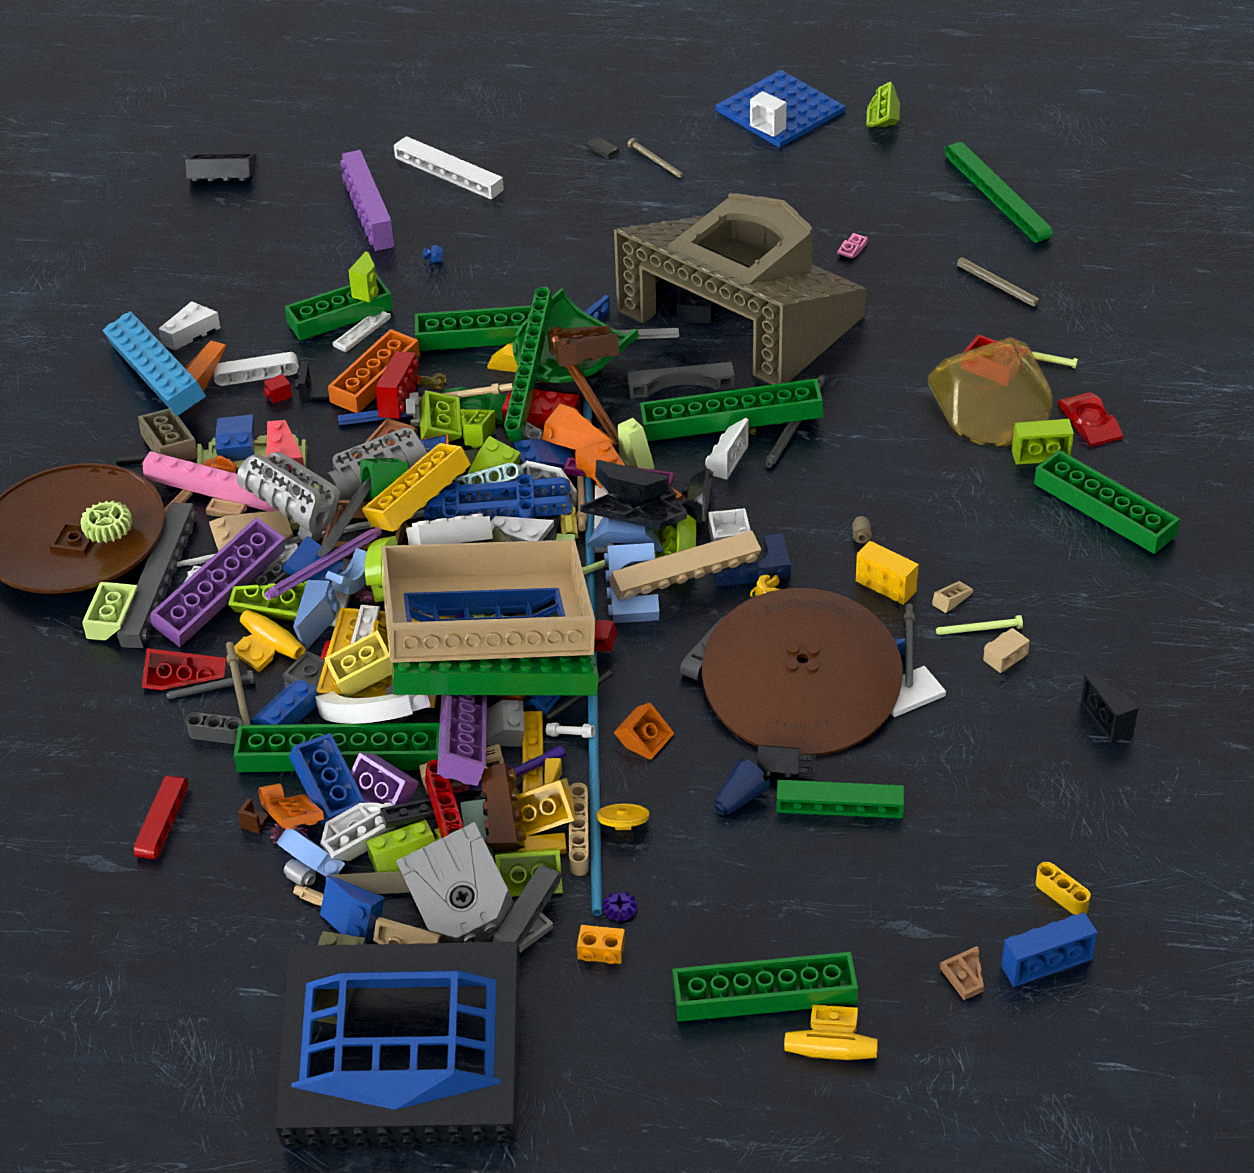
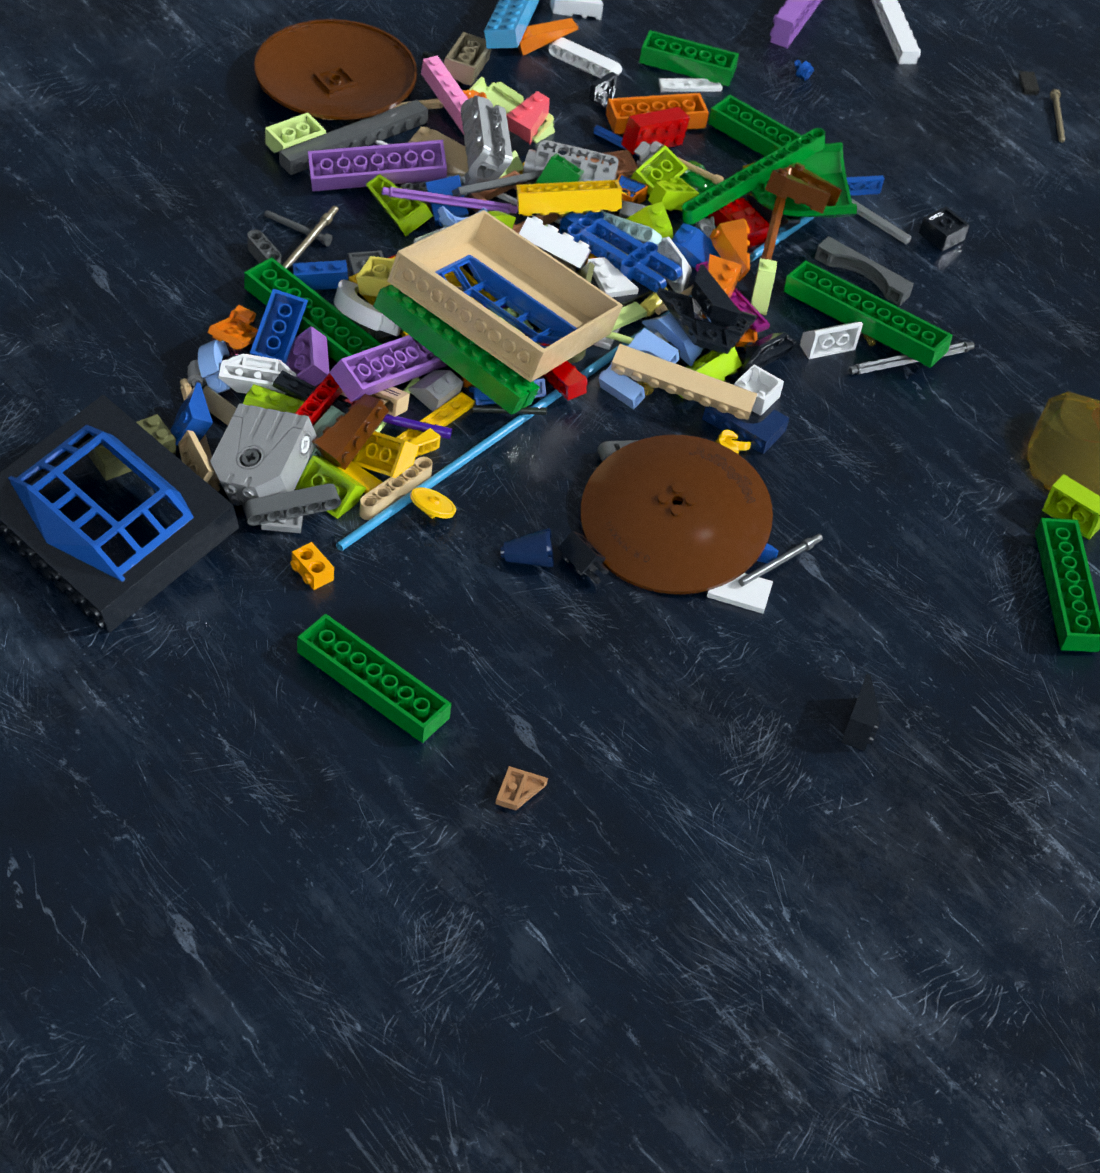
camera: 35 degrees right, 5 degrees up
(106, 521) = (357, 79): yellowish green gear -> none
(161, 817) = (164, 277): red beam -> none
(173, 669) = (289, 199): red wedge -> none
(222, 508) = (450, 129): tan tile -> none
(235, 437) = (509, 89): blue slope -> none
(252, 819) = (213, 314): reddish brown panel -> none
(266, 638) = (368, 224): yellow plate -> none
(277, 389) = (580, 81): red brick -> none
(315, 611) = (407, 227): medium blue slope -> none
(363, 279) = (718, 45): lime slope -> none
(436, 381) = (693, 150): clear yellow bar -> none
(586, 730) = (481, 433): white bar -> none
(628, 908) = (358, 561): dark purple gear -> none
(644, 731) = (520, 466): orange slope -> none
(791, 301) = (993, 266): dark tan piece -> none
(832, 1036) = (376, 746): yellow plate -> none
(840, 799) = (590, 613): green brick -> none
(861, 530) = (855, 461): dark tan brick -> none
(886, 572) = (827, 500): yellow brick -> none
(950, 597) = (855, 554): tan slope -> none
(1006, 650) = (847, 619): tan brick -> none
(1017, 622) = (884, 609): yellowish green bar -> none
(1048, 949) = (589, 821): blue brick -> none
(1062, 888) = (661, 787): yellow beam -> none

